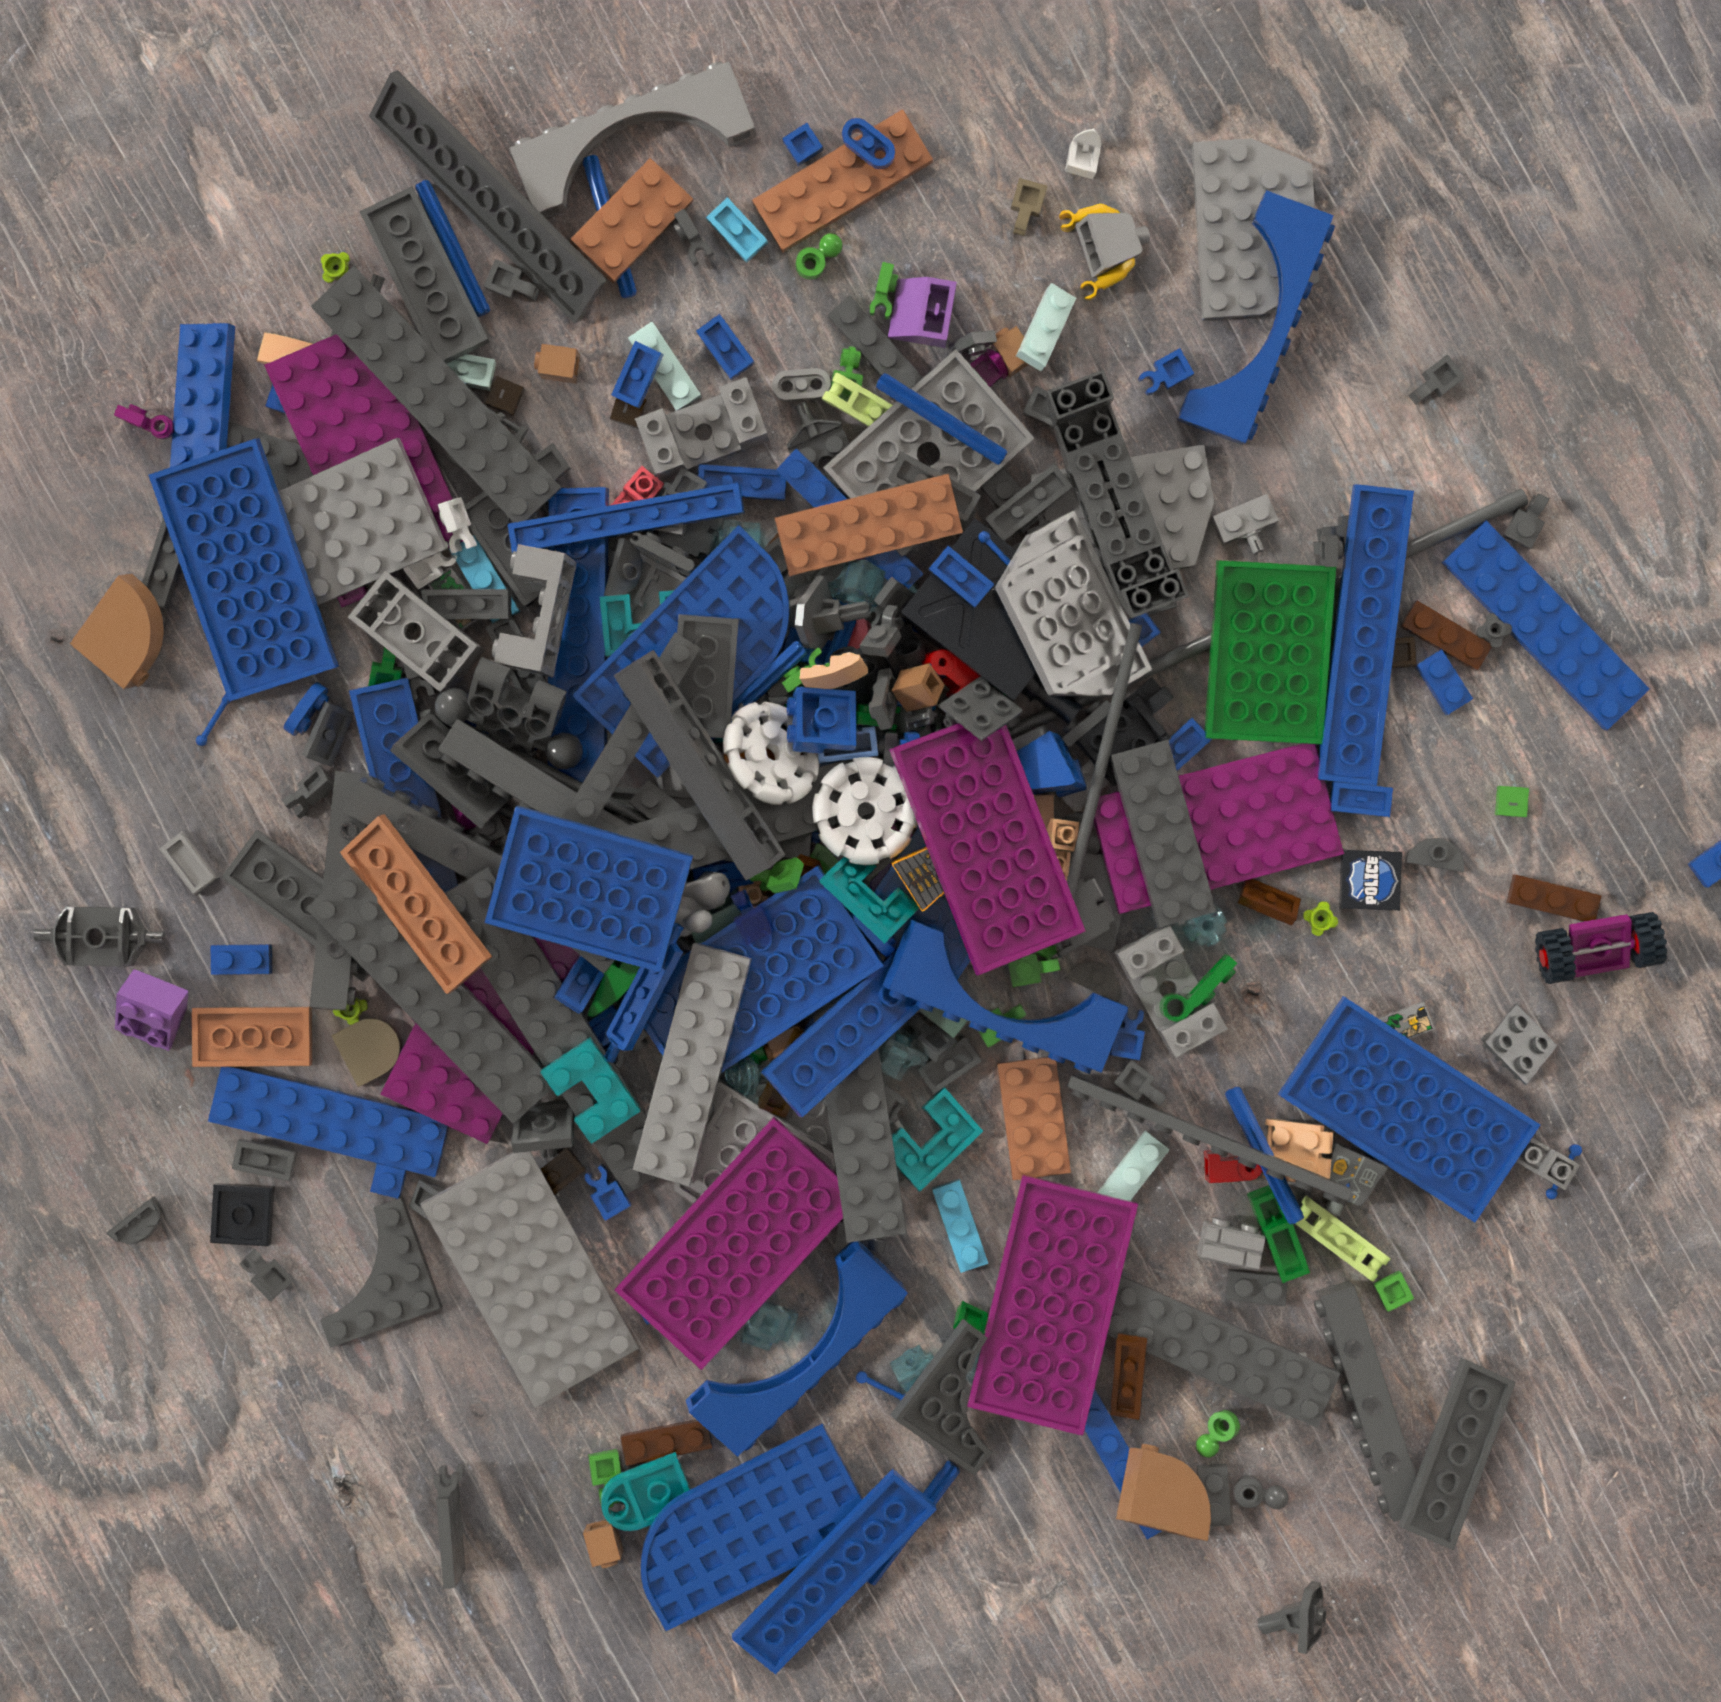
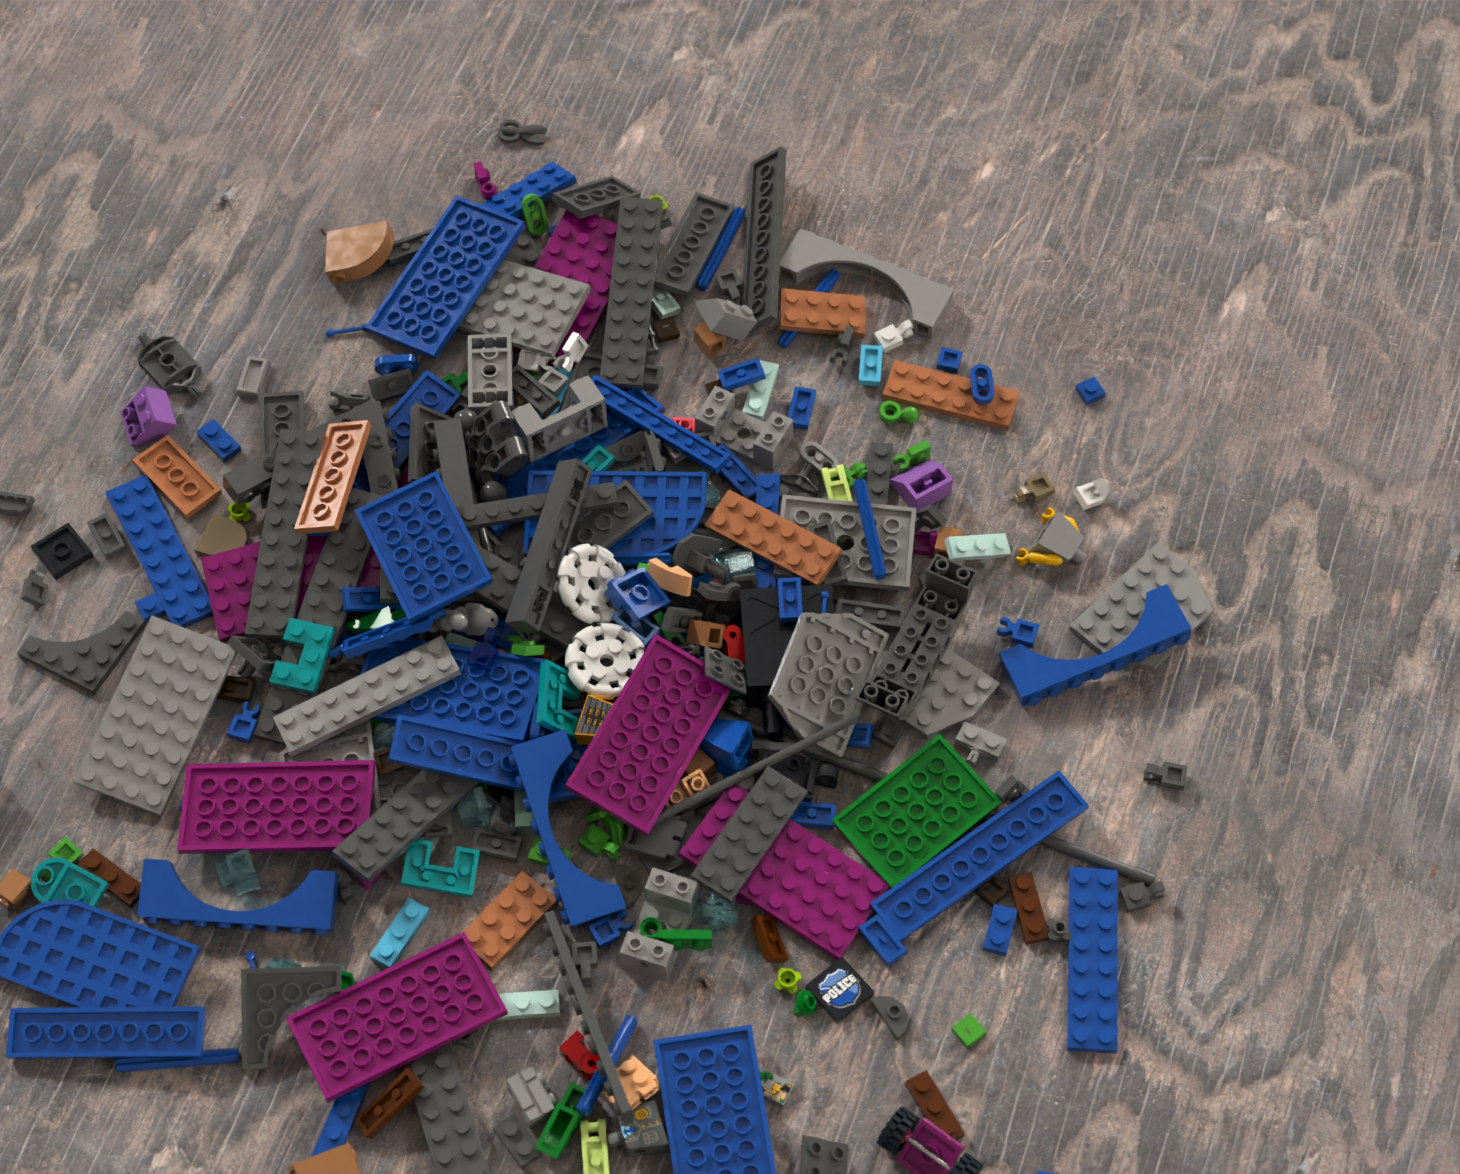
camera: 45 degrees right, 30 degrees down
(113, 319) = (524, 133): none -> dark grey piece
(237, 405) = (534, 213): none -> bright green plate
(278, 325) = (594, 196): none -> dark grey plate
(474, 571) = (554, 381): none -> light grey tile
(555, 328) = (726, 317): none -> light grey slope
(719, 176) = (893, 337): none -> white plate
(963, 36) = (1090, 390): none -> blue plate
(1355, 923) = (804, 1003): none -> green plate

